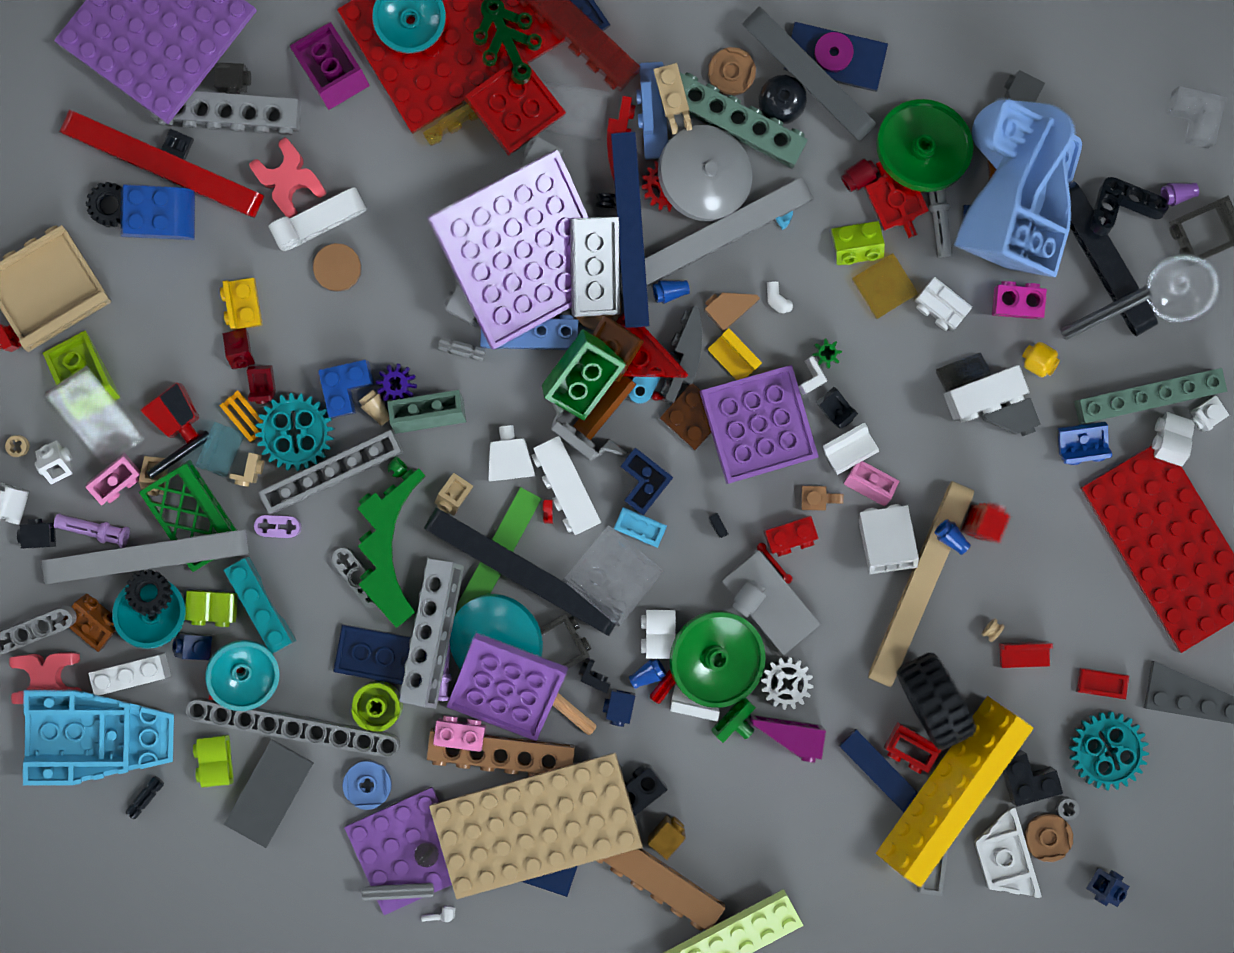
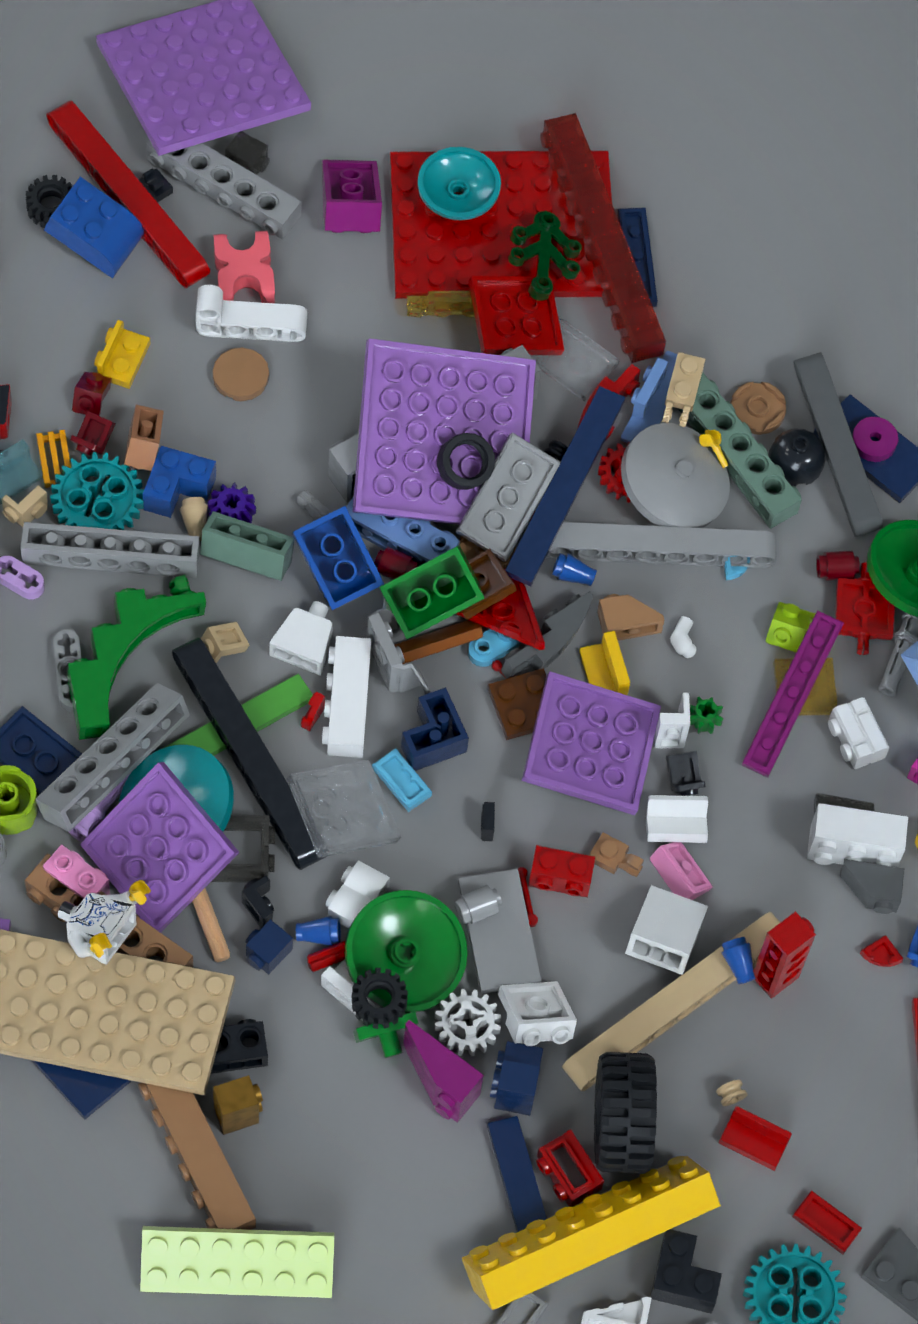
camera: 25 degrees right, 25 degrees down
(301, 369) = (143, 437): none -> nougat brick
(498, 385) = (337, 558): none -> blue brick
(501, 770) = (102, 921): none -> white torso
(540, 361) = (394, 563): none -> dark red brick
(569, 269) = (486, 453): none -> black tyre
(711, 721) = (379, 981): none -> black tyre
(719, 129) = (712, 439): none -> yellow hand
(831, 651) = (537, 1013): none -> white plate
(845, 708) = (517, 1080): none -> dark blue brick
(881, 301) = (792, 694): none -> magenta tile
(1042, 463) = (882, 953): none -> red tile

